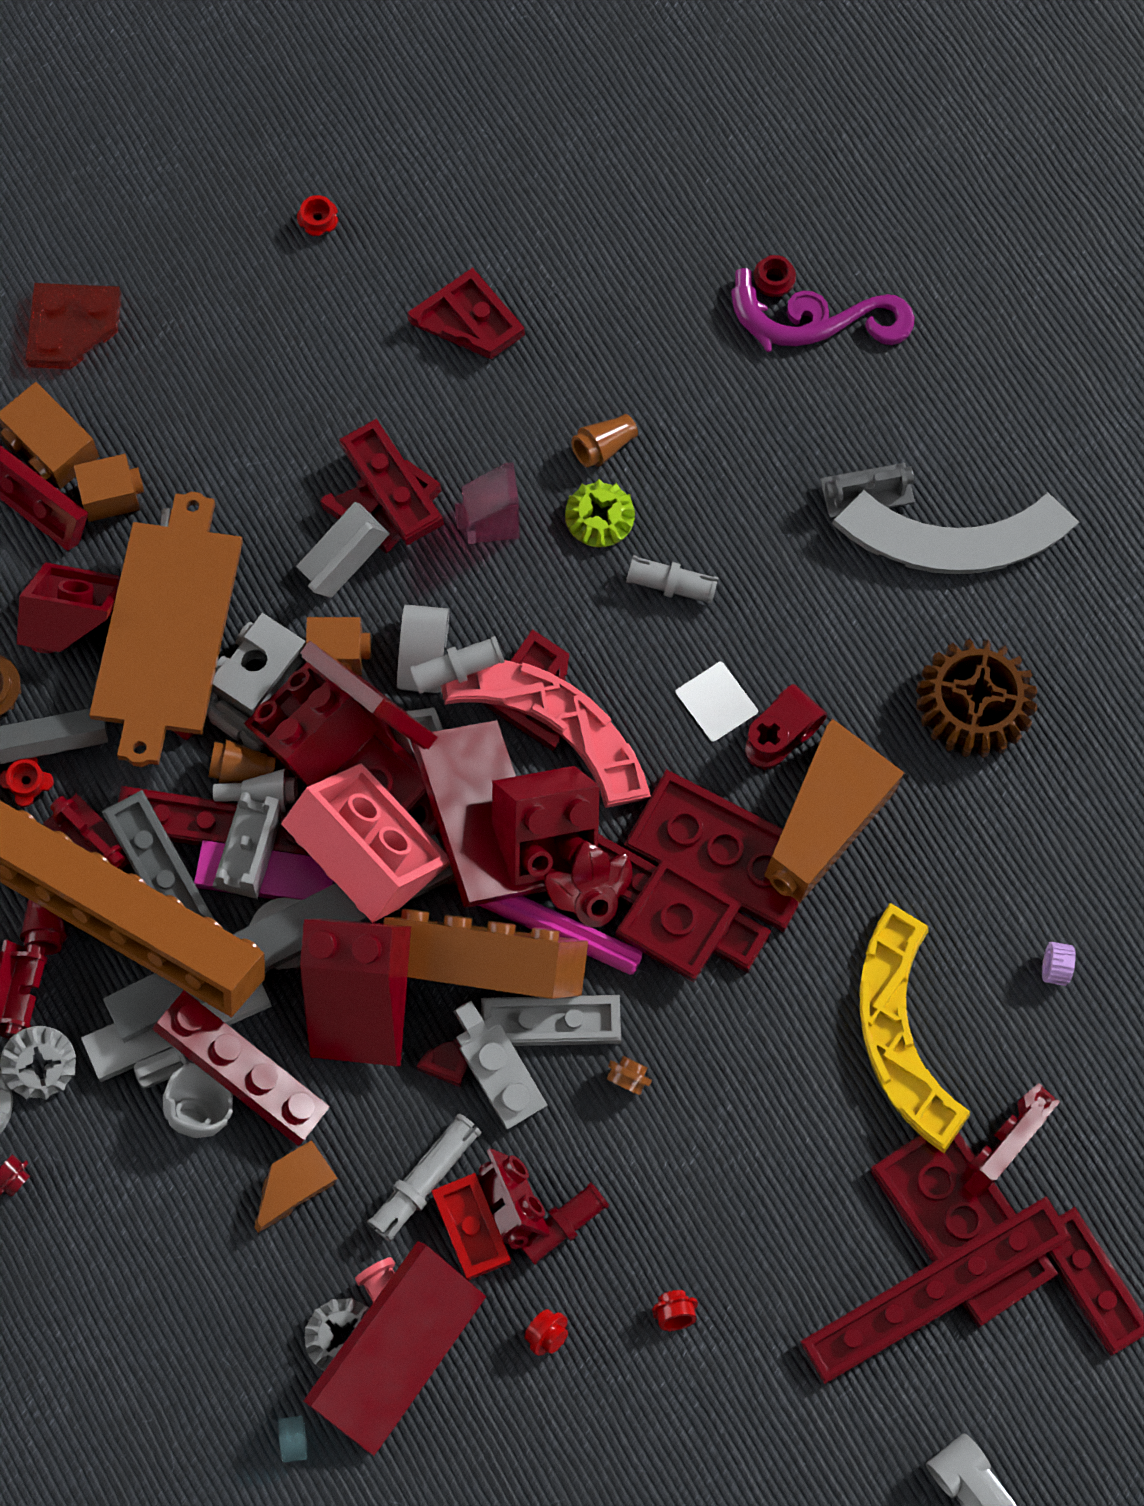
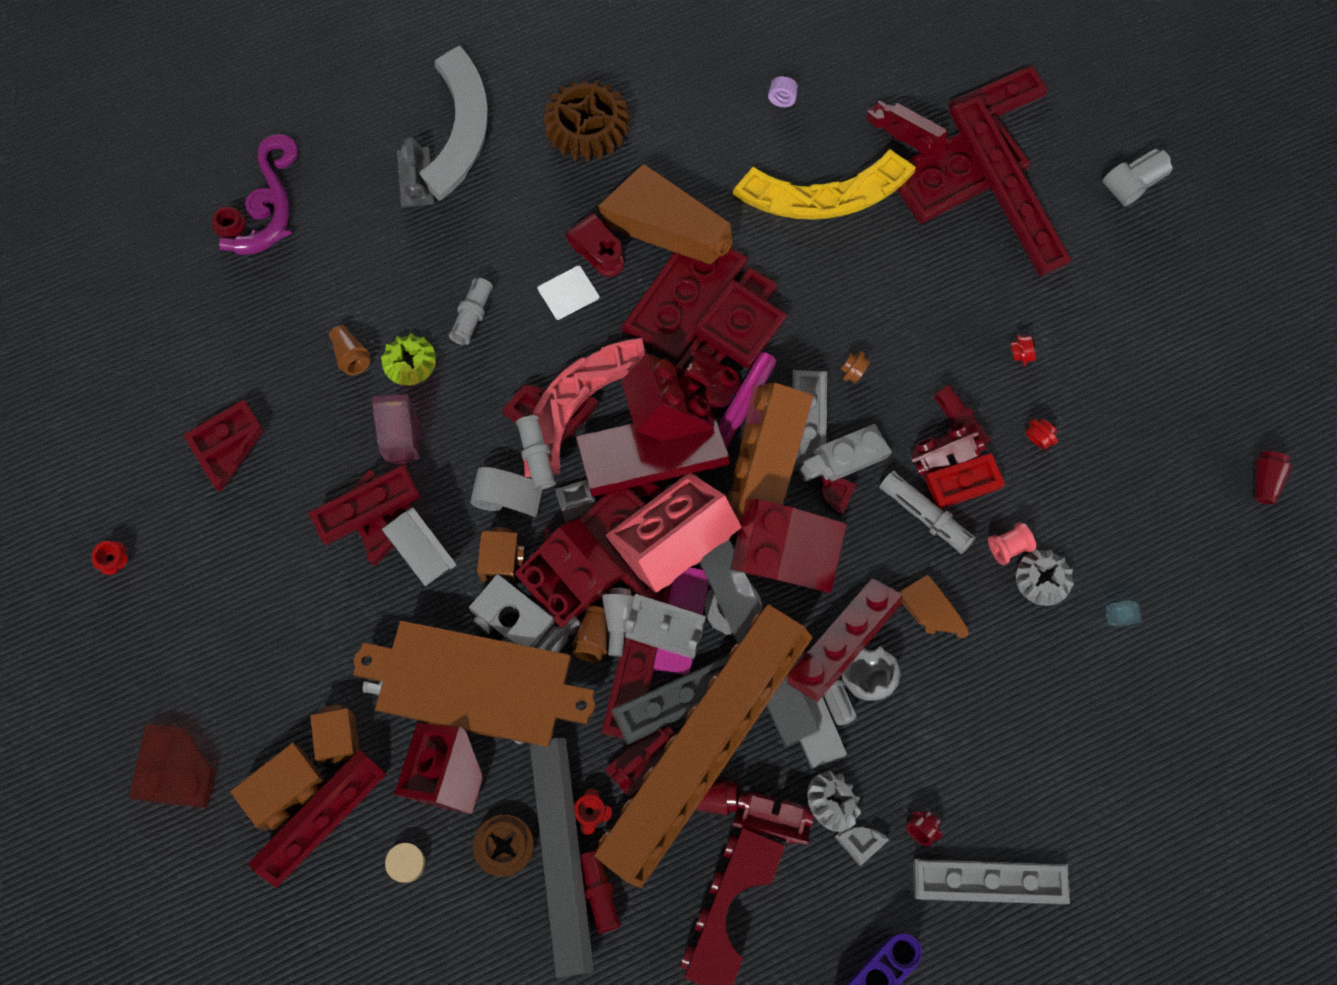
camera: 85 degrees left, 0 degrees up
(368, 696) = (557, 517): dark red tile -> none
(395, 1348) = (1060, 535): dark red tile -> none

